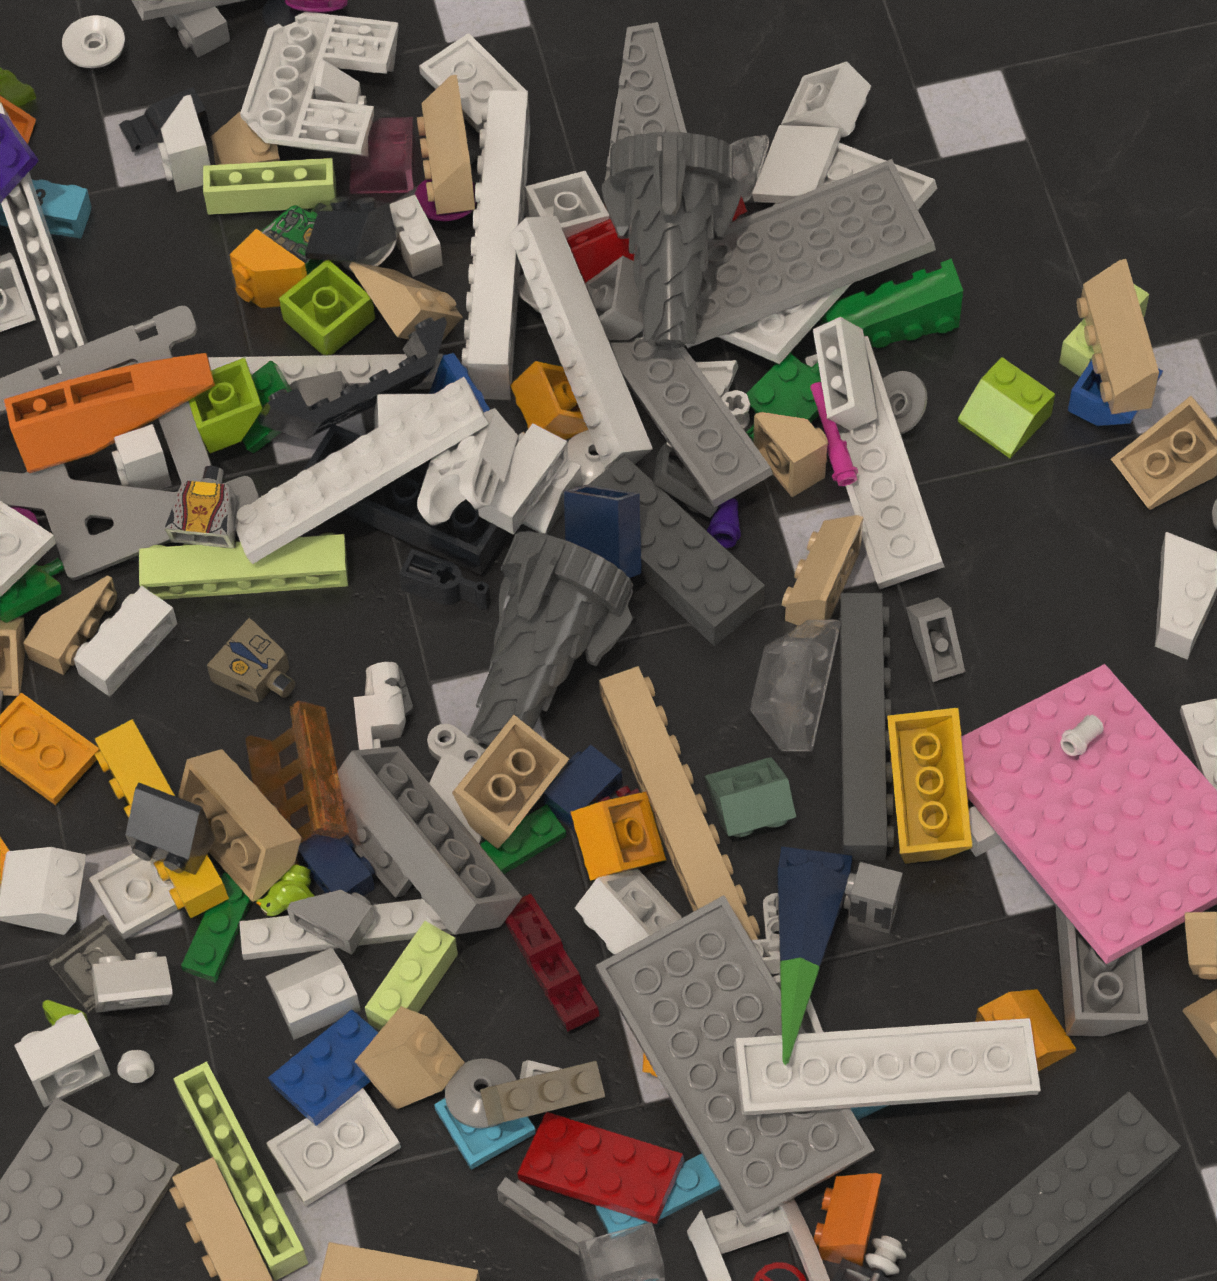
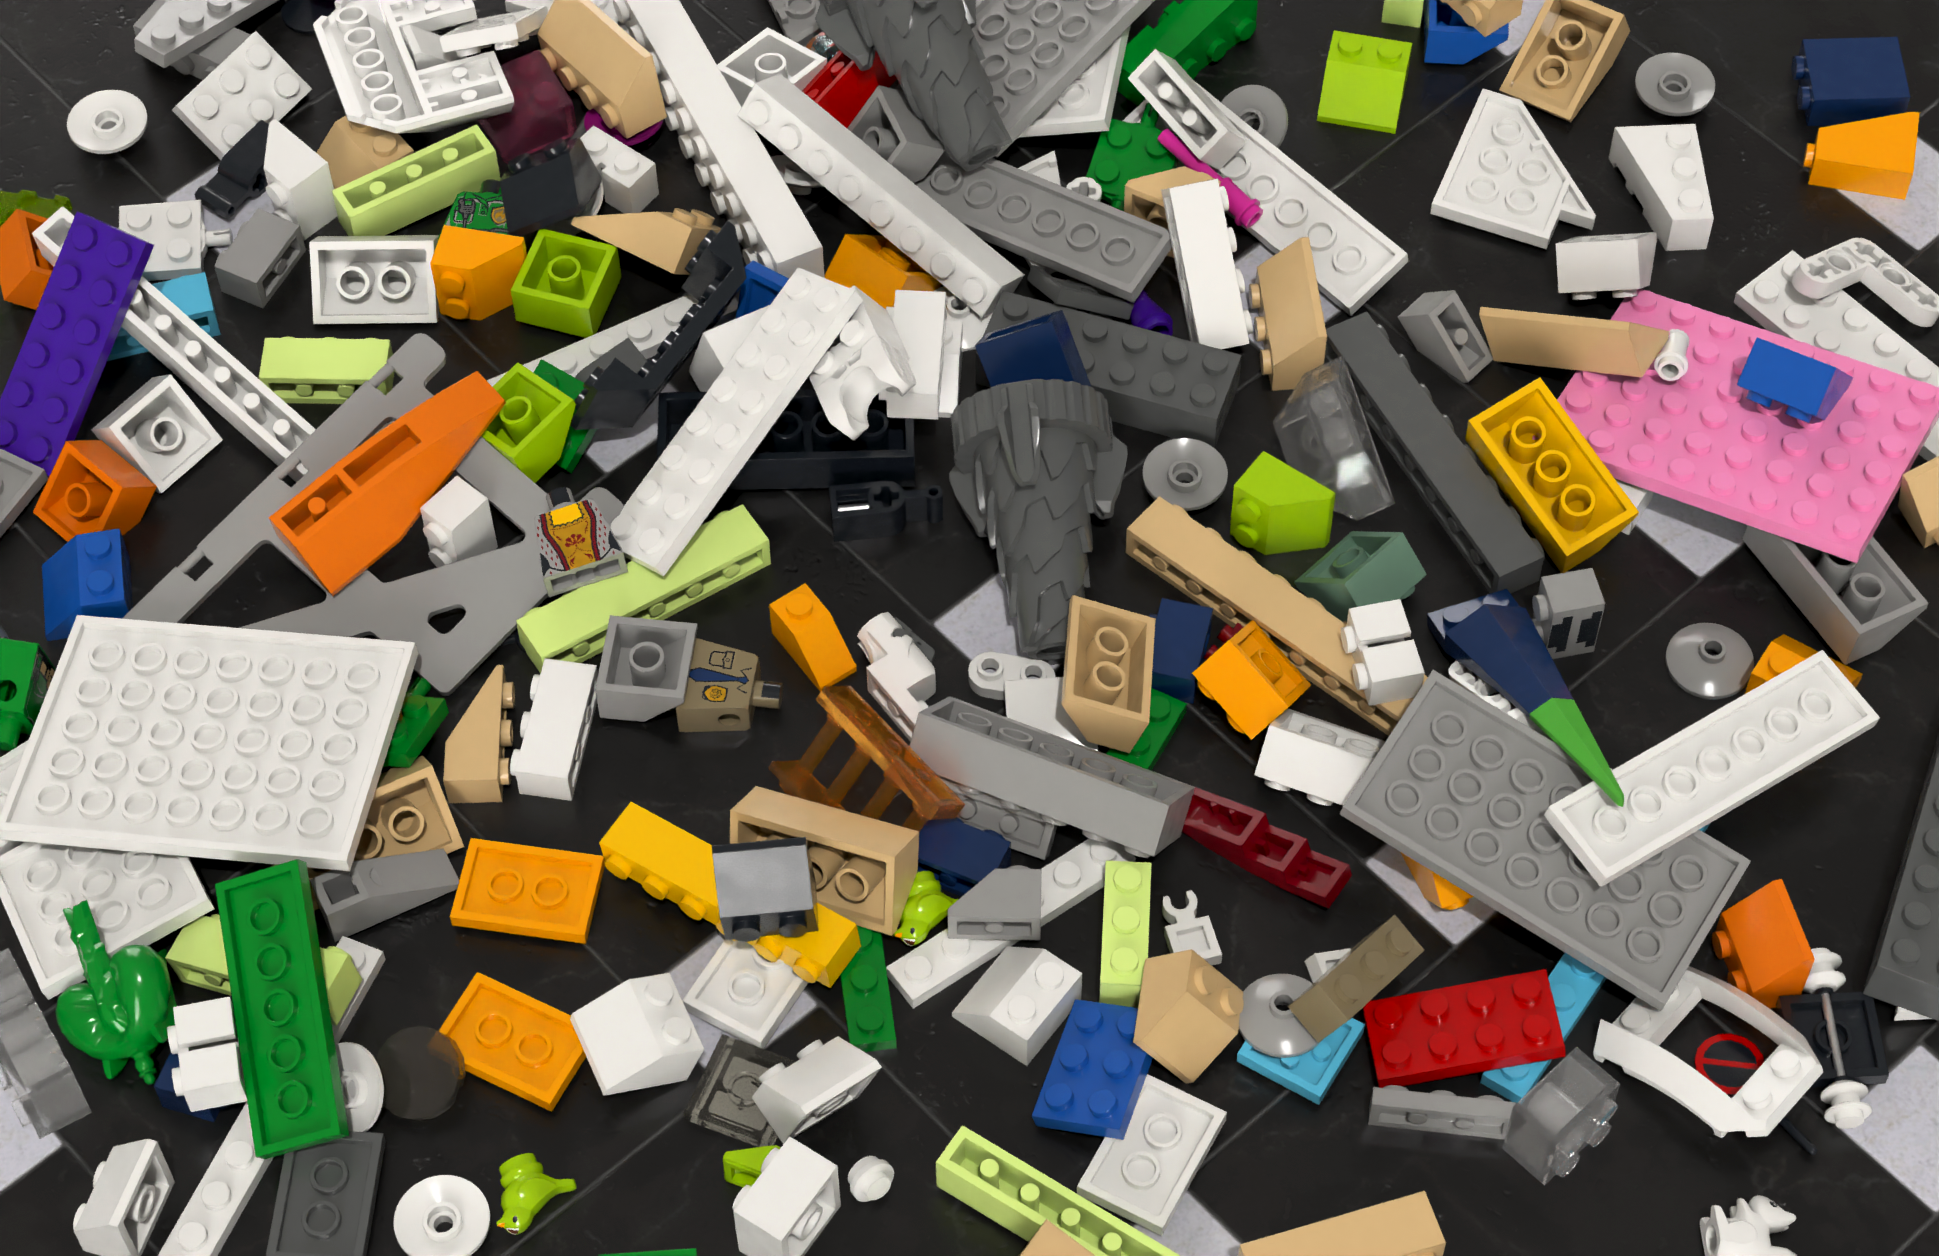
camera: 30 degrees left, 5 degrees down
(79, 150) = (177, 236): none -> white plate
(124, 296) = (322, 368): none -> yellowish green brick
(135, 193) = (260, 258): none -> light grey brick
(195, 59) = (239, 93): none -> white plate
(197, 242) = (373, 279): none -> white slope
(203, 623) = (644, 667): none -> light grey slope
(335, 656) = (811, 637): none -> light orange slope
(387, 89) = (501, 30): none -> white plate
(458, 1006) = (1190, 932): none -> white plate
(669, 644) = (1187, 461): none -> light grey dish
(715, 861) = (1384, 661): none -> white piece
(716, 716) = (1280, 508): none -> lime slope
(777, 504) = (1206, 264): none -> white brick
(965, 996) = (1708, 674): none -> light grey dish
(1017, 687) = (1571, 341): none -> tan slope
(1067, 532) = (1509, 177): none -> white wing
(1090, 636) = (1605, 264): none -> white slope
(1154, 799) = (1792, 380): none -> blue slope

